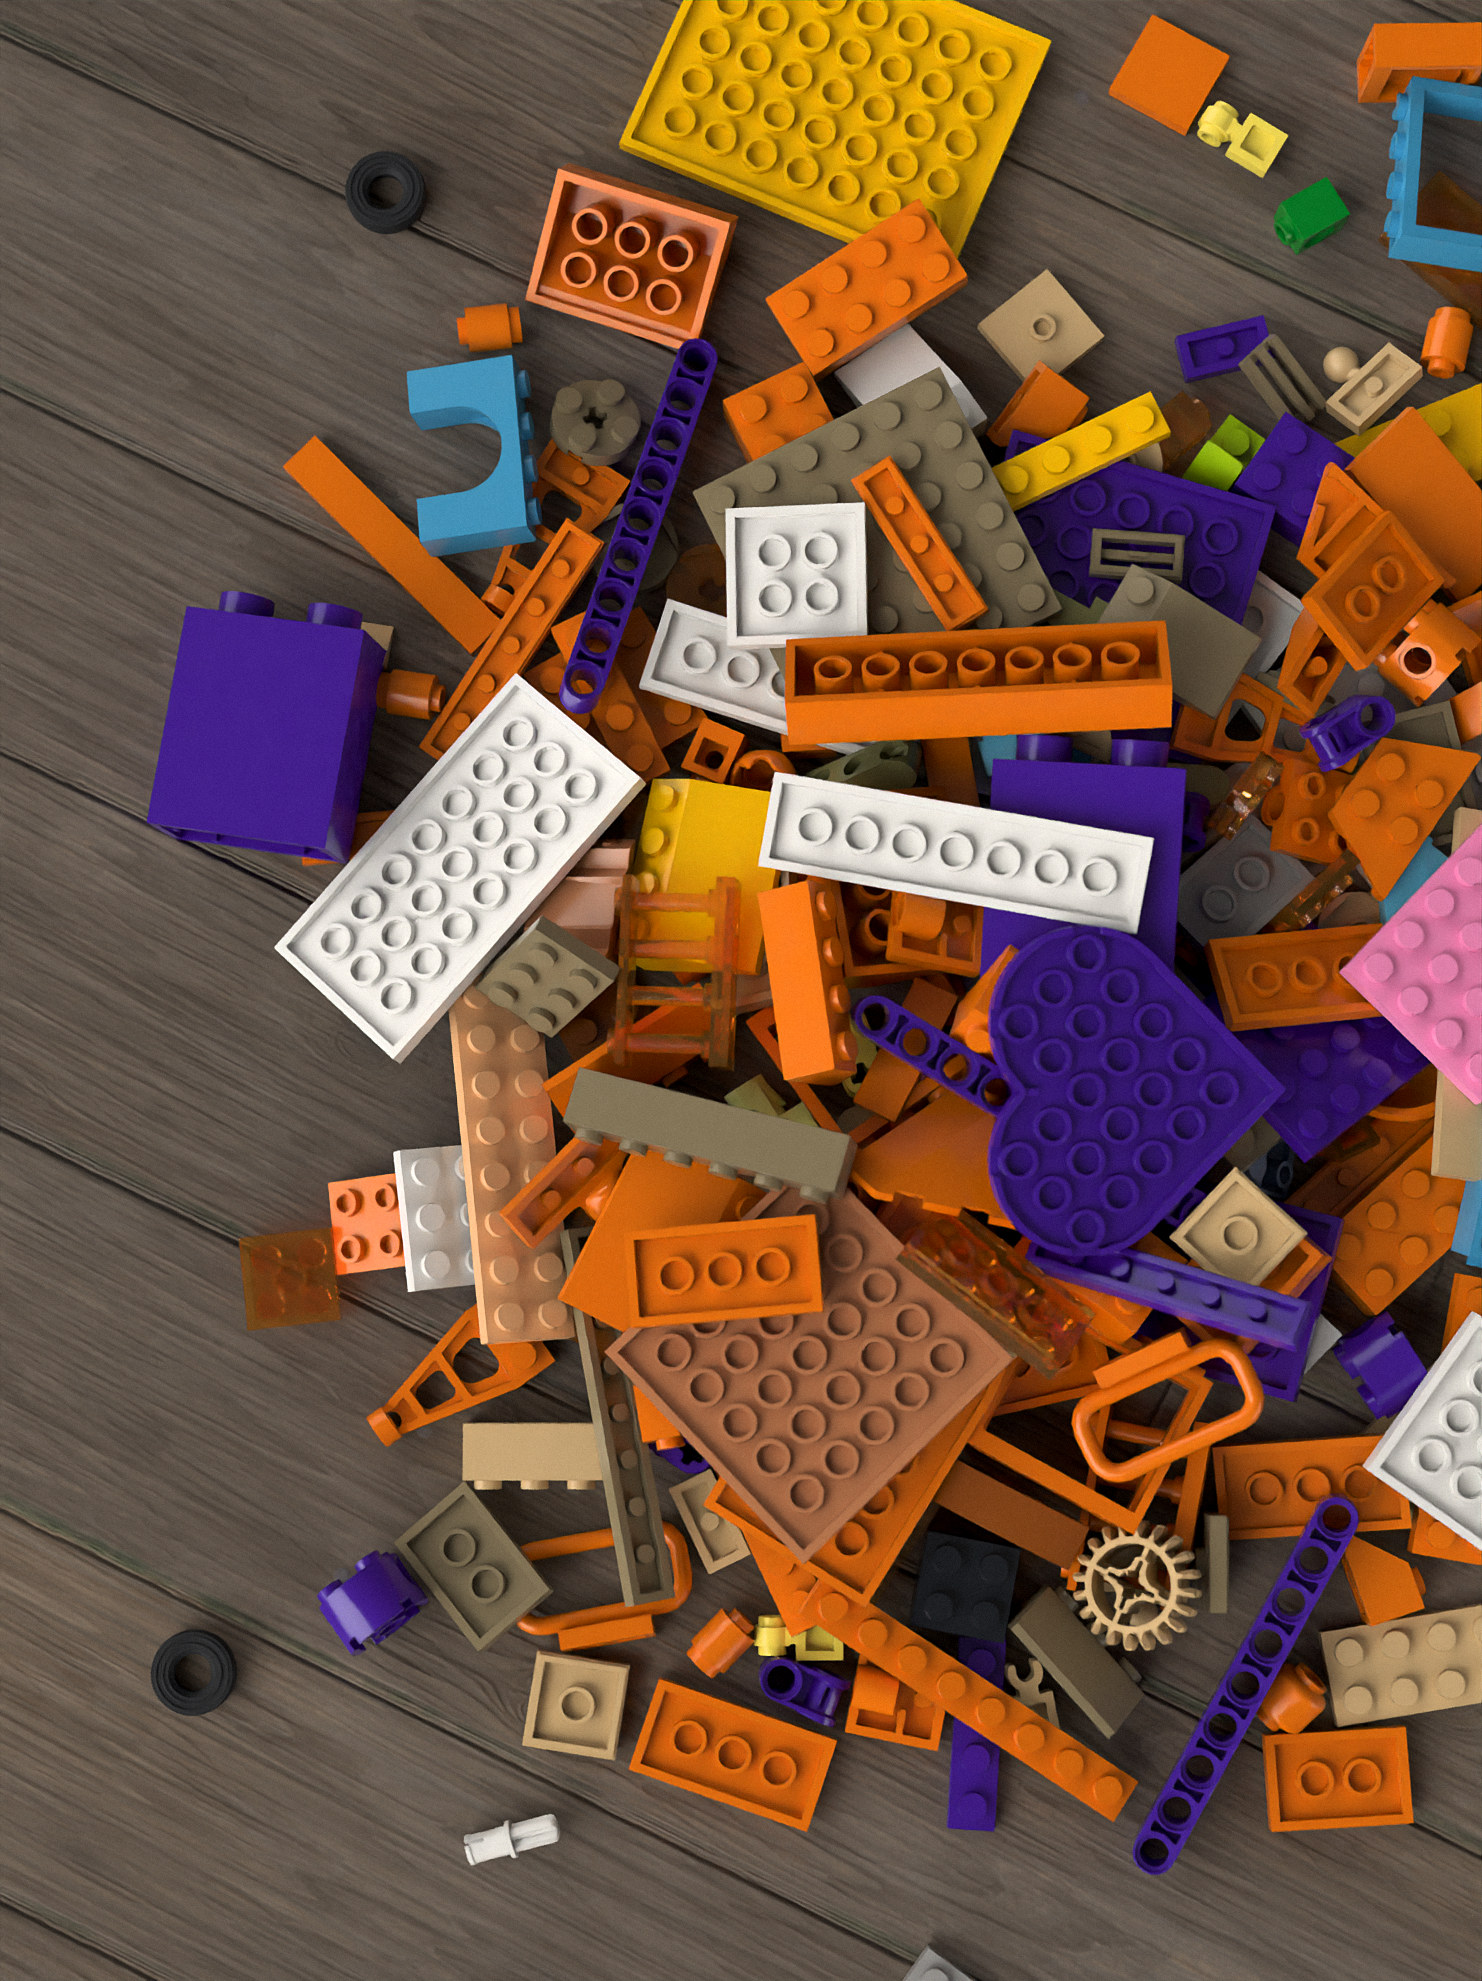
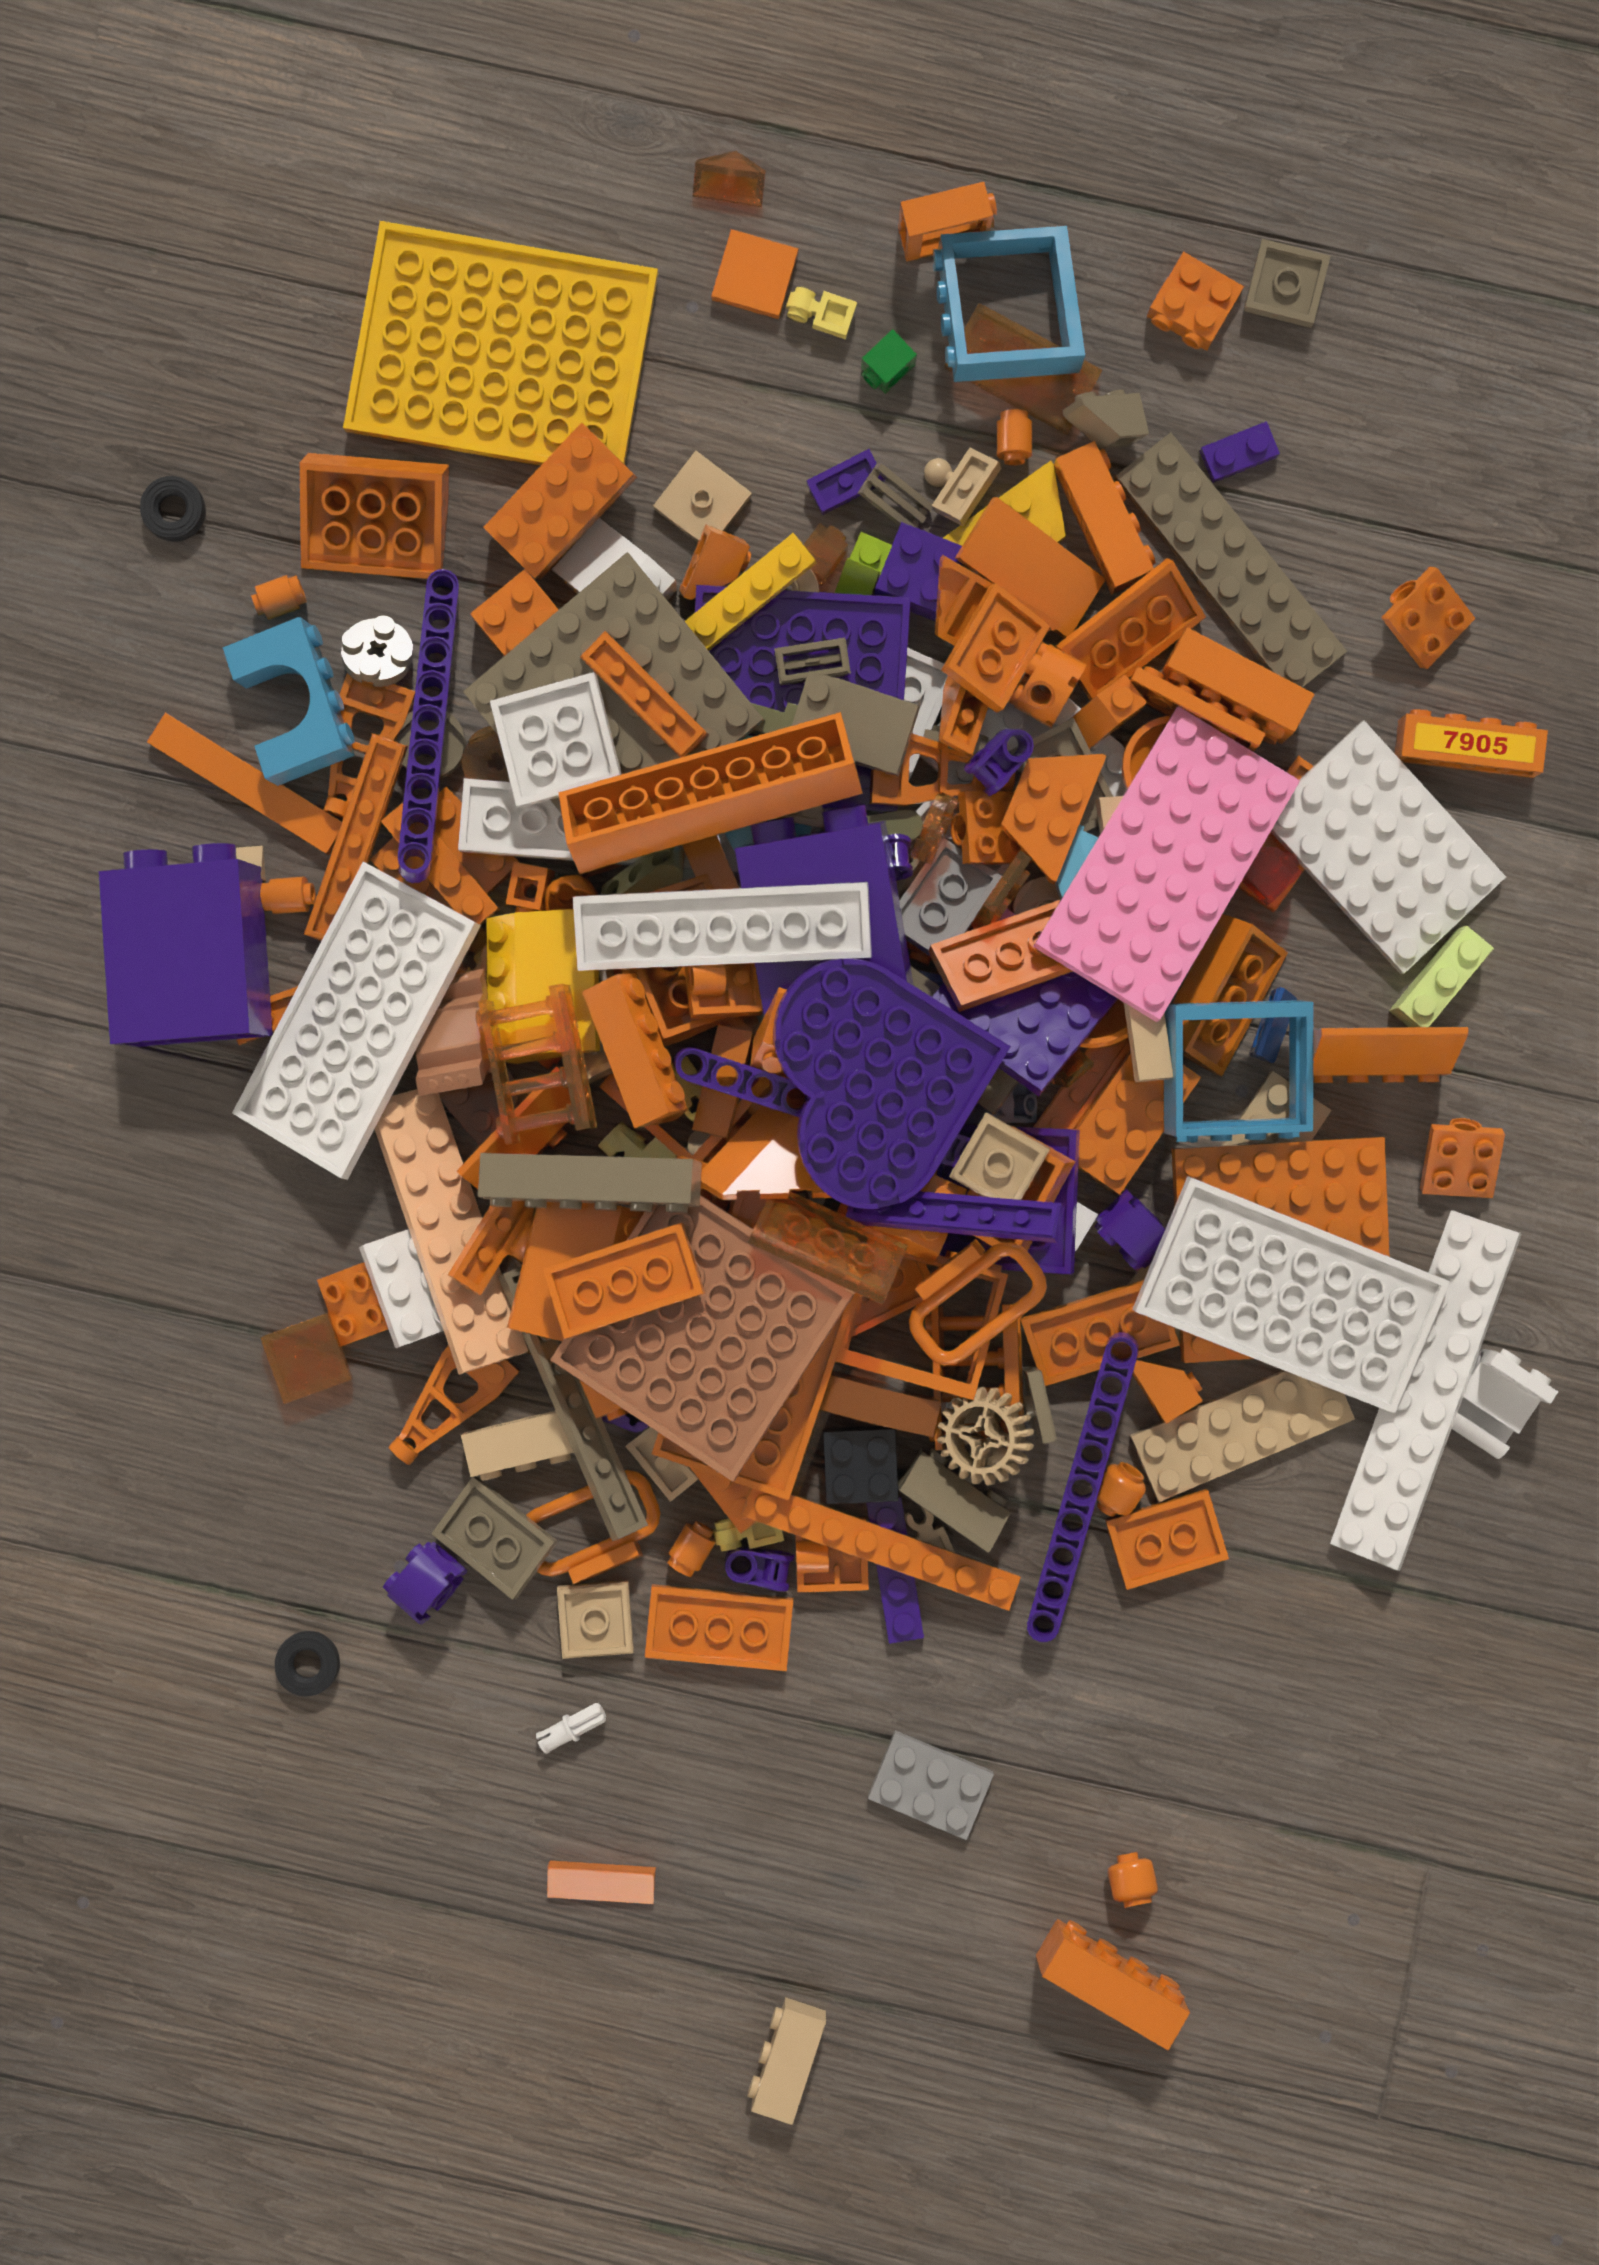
camera: 15 degrees left, 5 degrees up
(547, 977) = (441, 1090): dark tan plate -> none

